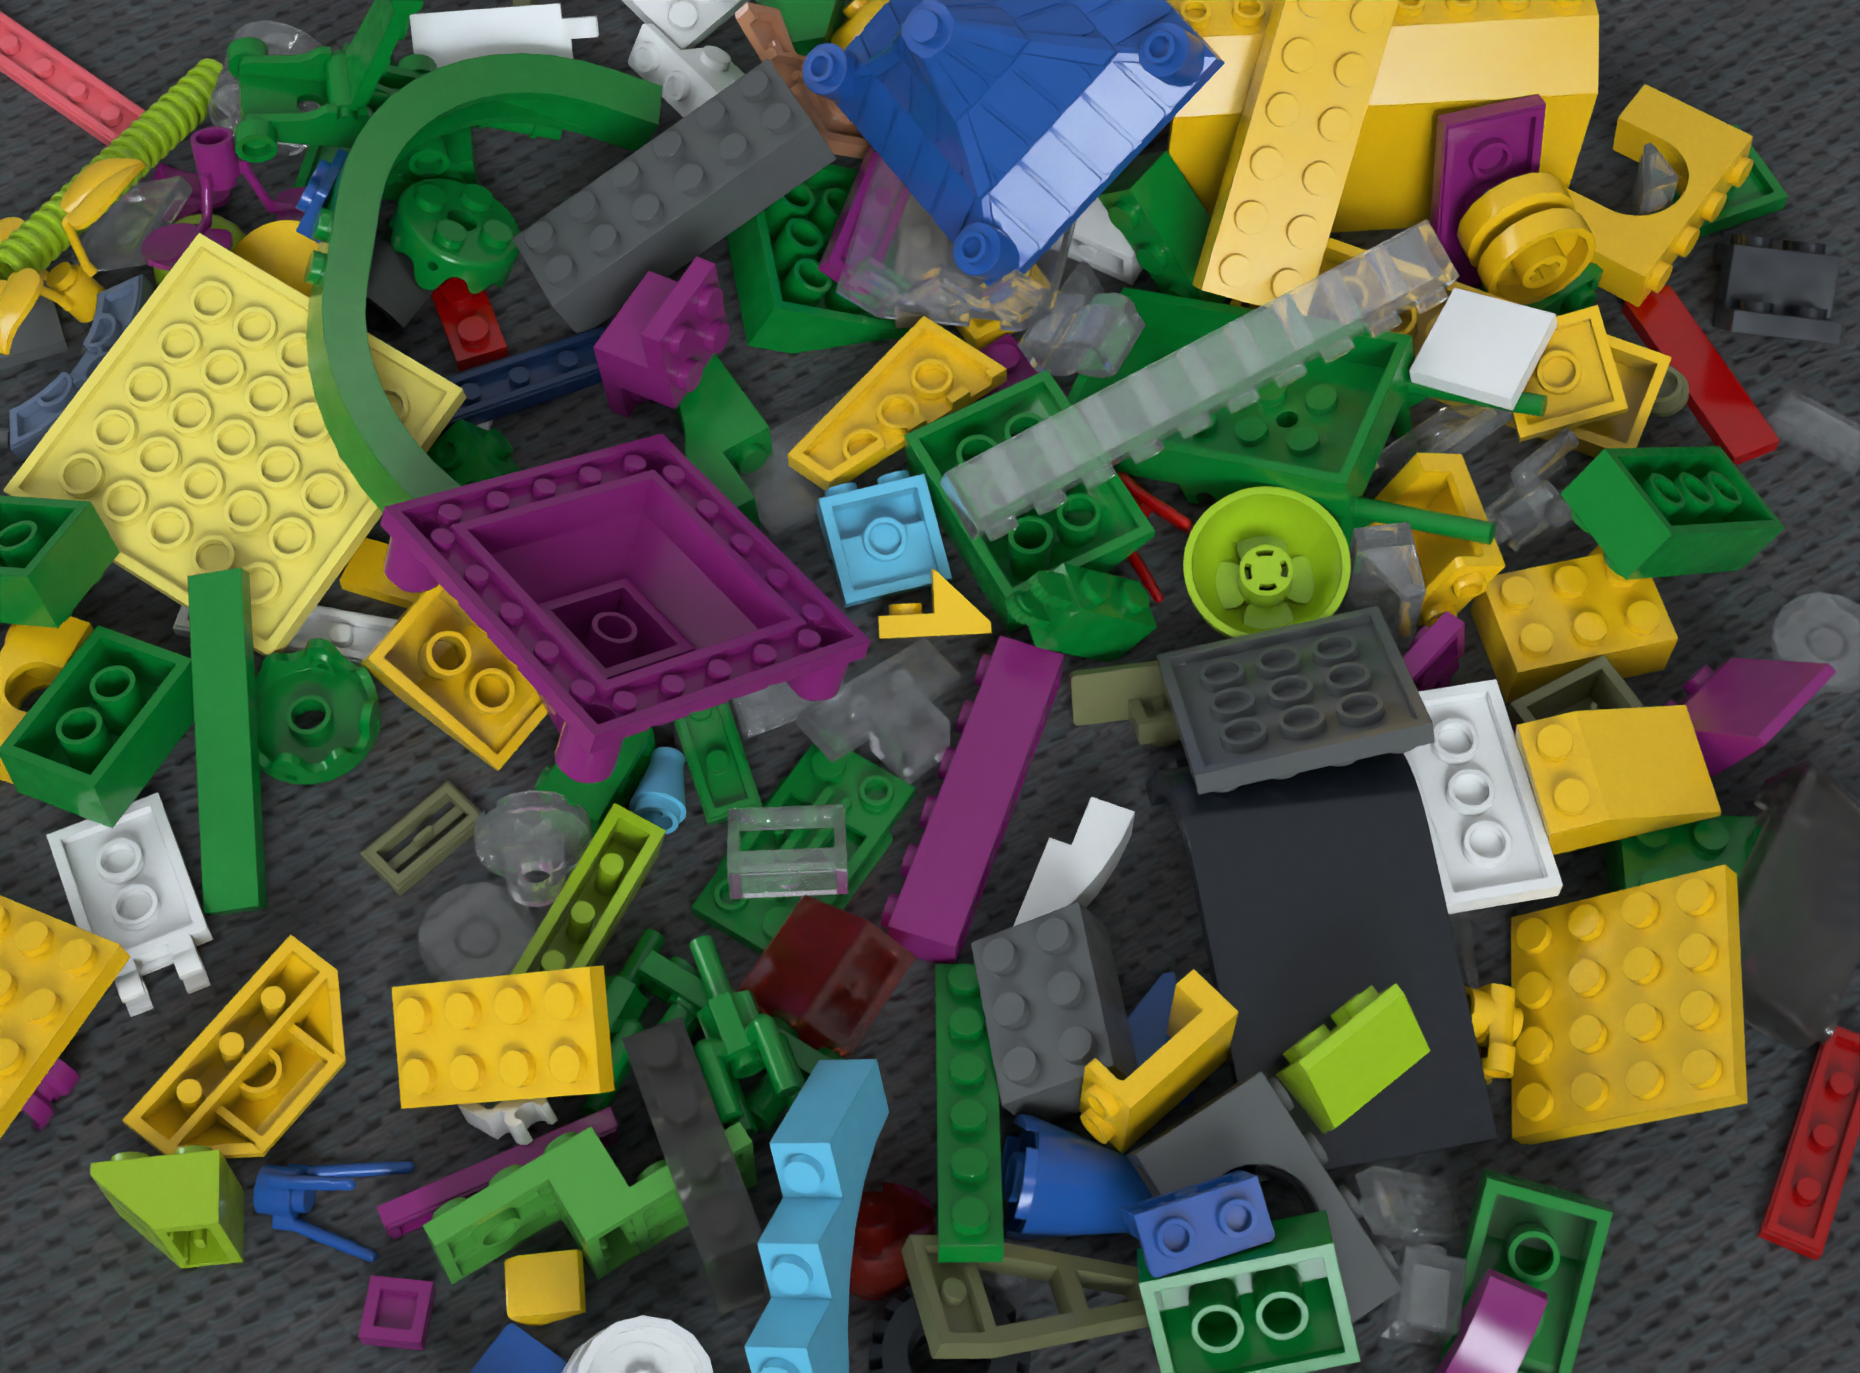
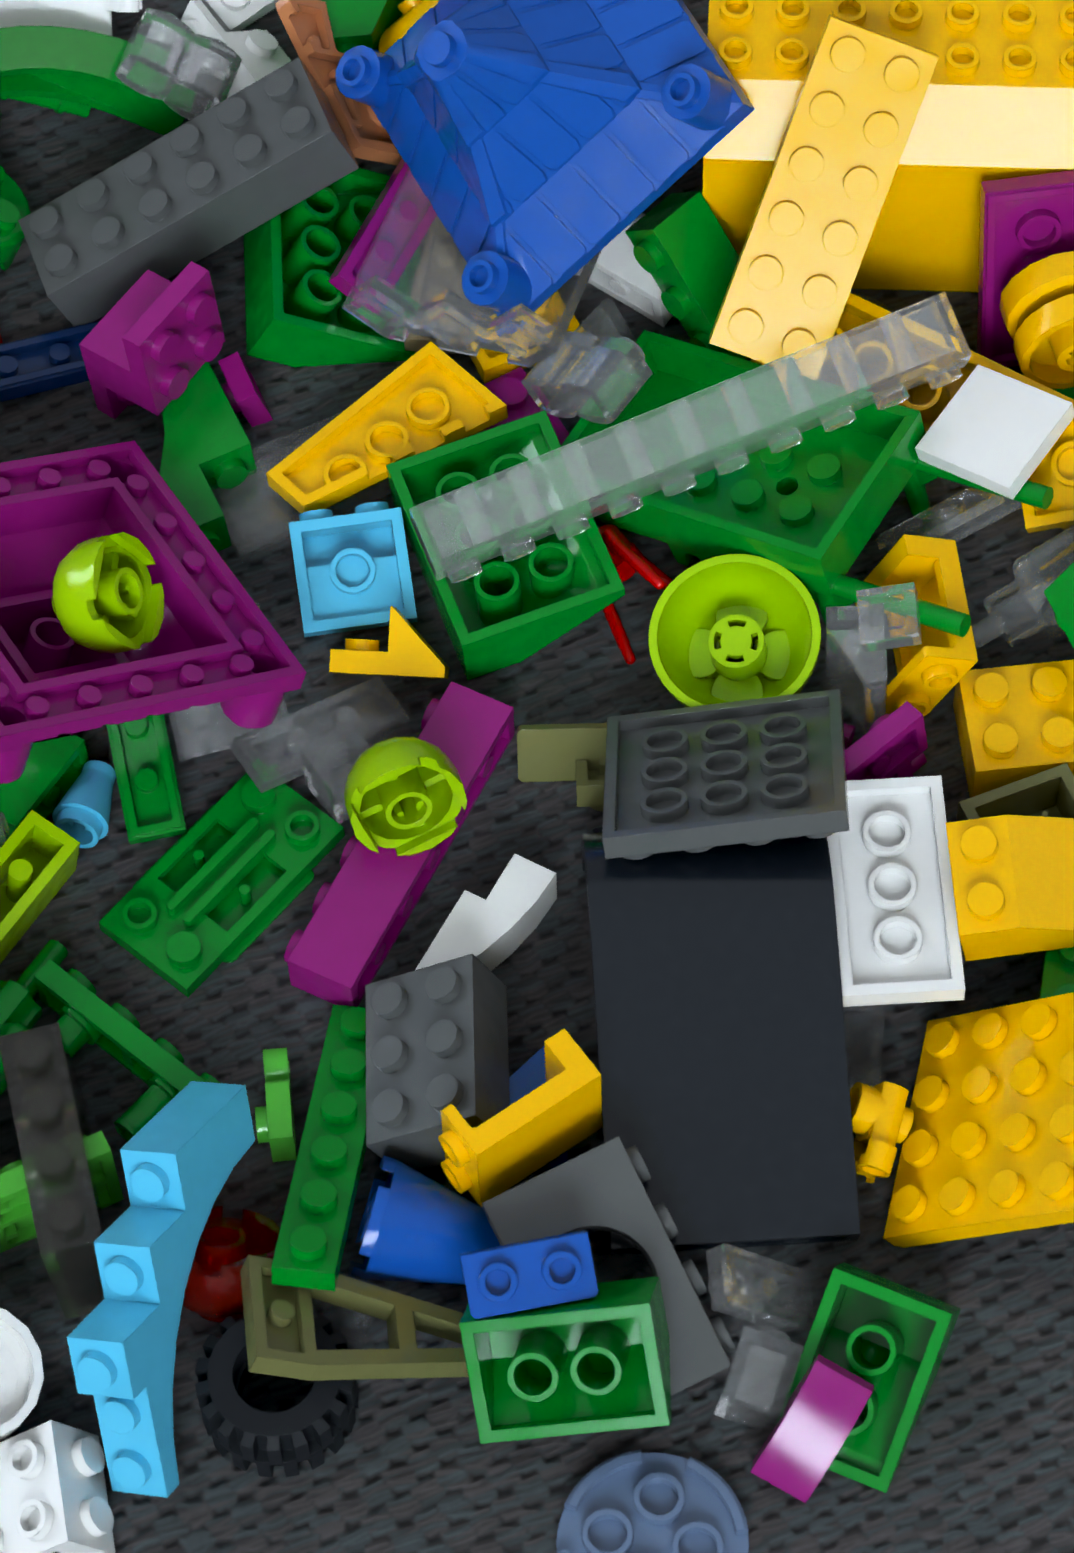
camera: 10 degrees right, 0 degrees up
(643, 82) = (177, 65): none -> clear brick
(666, 584) = (108, 594): none -> lime cylinder
(738, 1042) = (114, 1058): green plant -> none
(750, 378) = (243, 390): none -> magenta plate
(787, 870) = (199, 895): clear tile -> none
(827, 975) = (218, 1002): clear red slope -> none
(901, 1080) = (276, 1119): none -> bright green plate
(980, 751) = (403, 796): none -> lime cylinder
(1083, 612) = (537, 665): green hinge -> none
(1352, 1063) = (716, 1133): lime slope -> none
(1419, 532) = (889, 617): none -> clear tile

